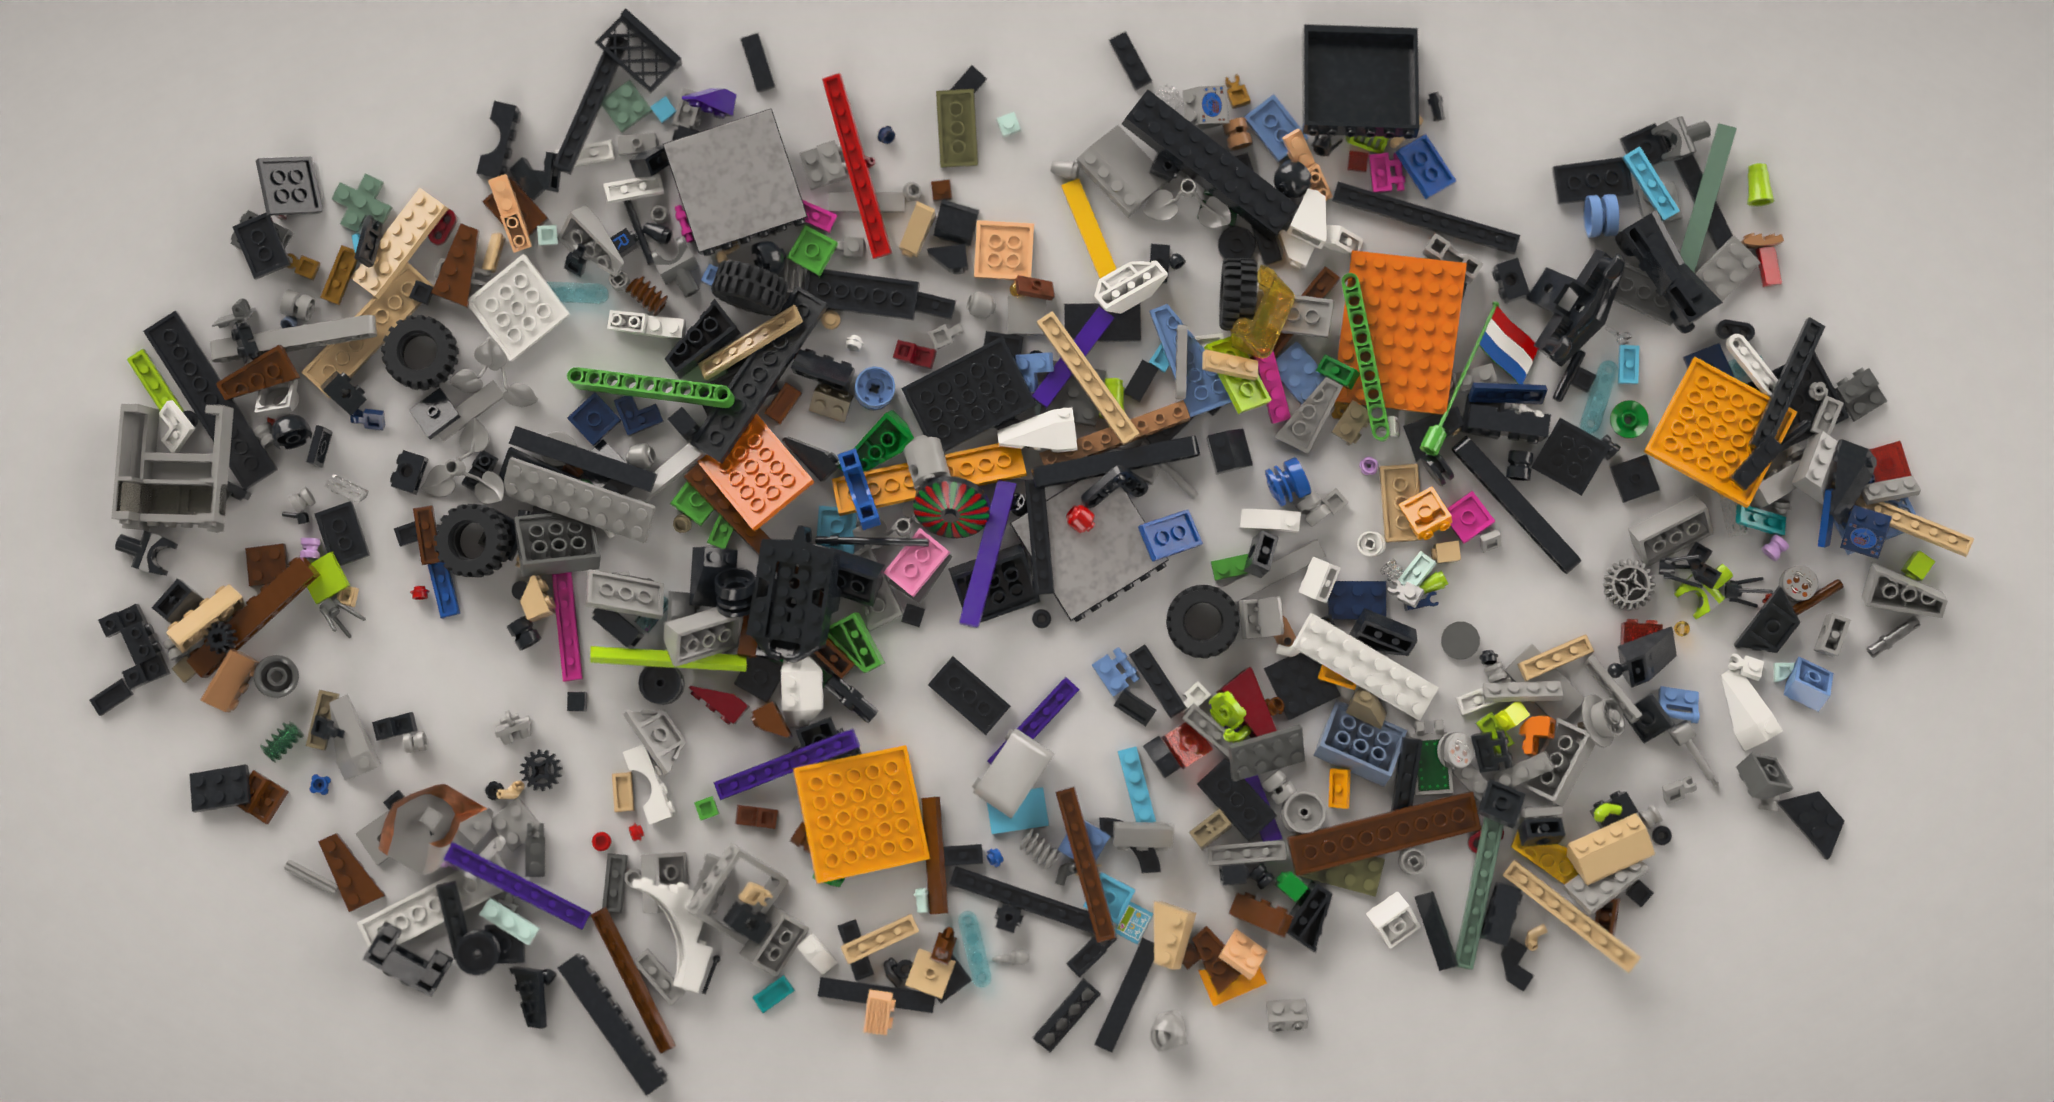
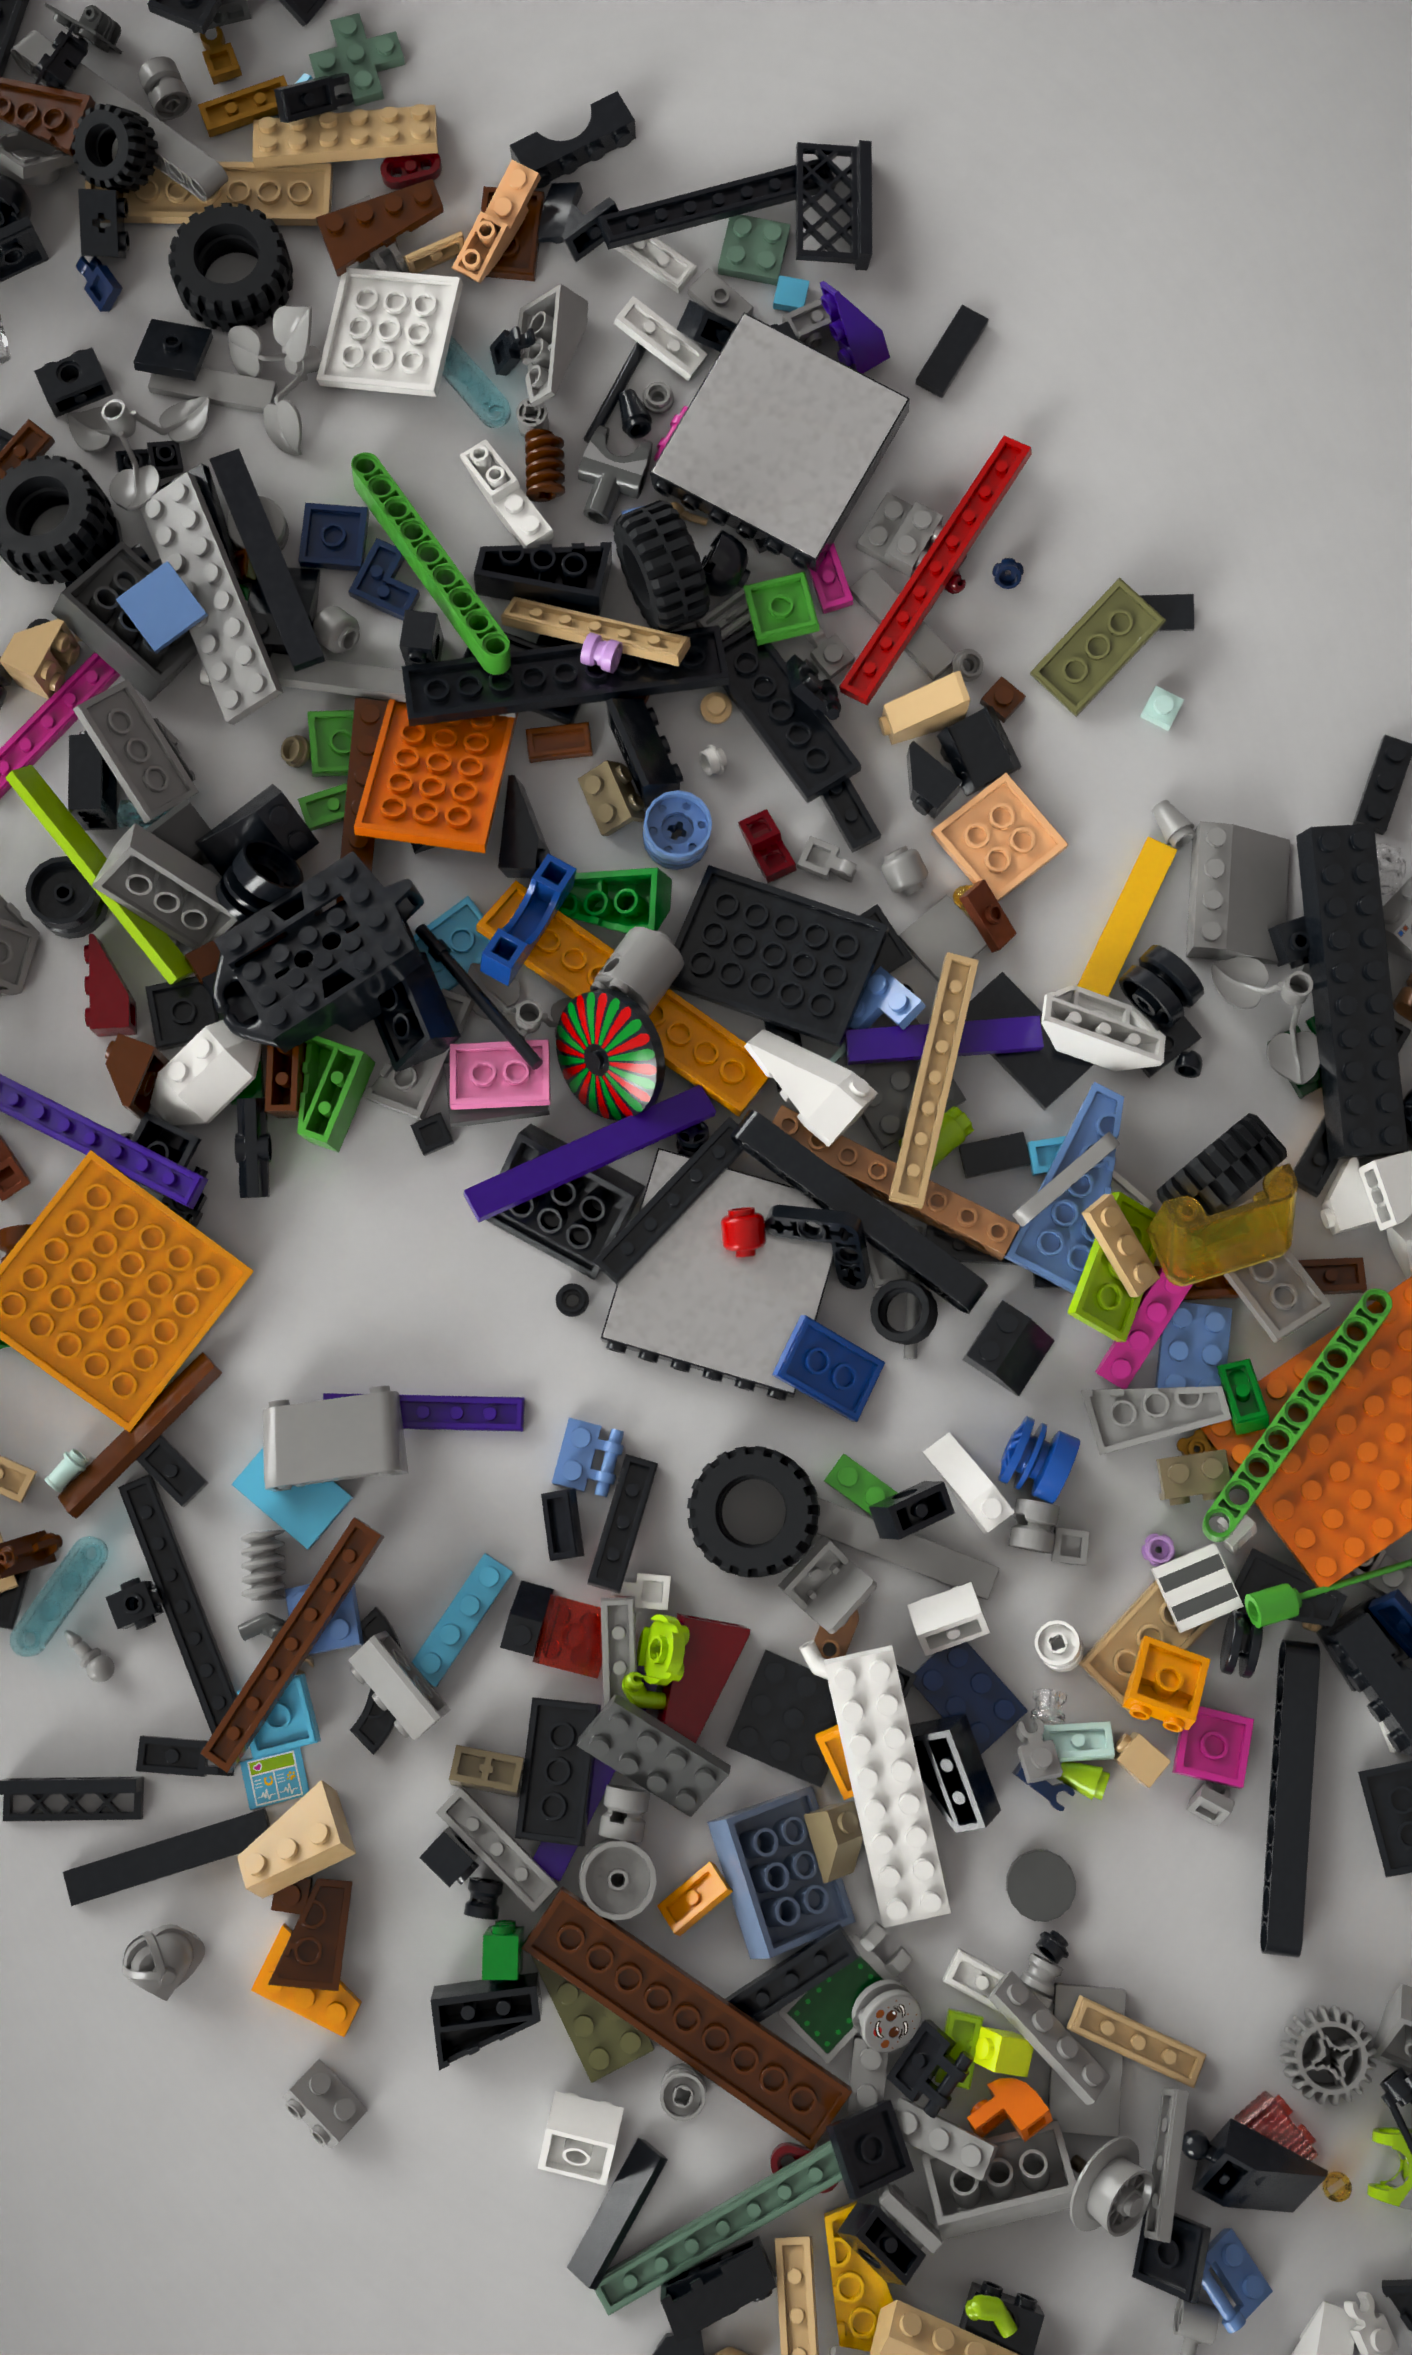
camera: 50 degrees right, 5 degrees down
(285, 322) = (137, 95): sand blue hinge -> none
(310, 368) = (95, 143): none -> black tyre
(421, 292) = (306, 208): black tile -> none
(547, 235) = (511, 292): light aqua plate -> none
(566, 525) = (162, 607): none -> medium blue tile
(625, 242) = (583, 385): black brick -> none
(765, 350) = (604, 653): none -> lavender wheel
(863, 272) = (811, 690): none -> black plate
(969, 695) = (389, 1295): black plate -> none
(994, 857) = (203, 1515): blue plate -> none
(1134, 243) = (1161, 986): none -> black wheel
(1185, 471) = (880, 1306): none -> black tyre
(1236, 243) = (1286, 1117): black tile -> none
(1243, 954) = (354, 1968): light nougat plate -> none
(1261, 914) = (428, 1945): reddish brown brick -> none
(1275, 706) = (728, 1710): reddish brown plate -> none
(1398, 464) = (1197, 1587): none -> tile
(1519, 465) = (1346, 1753): black wheel -> none

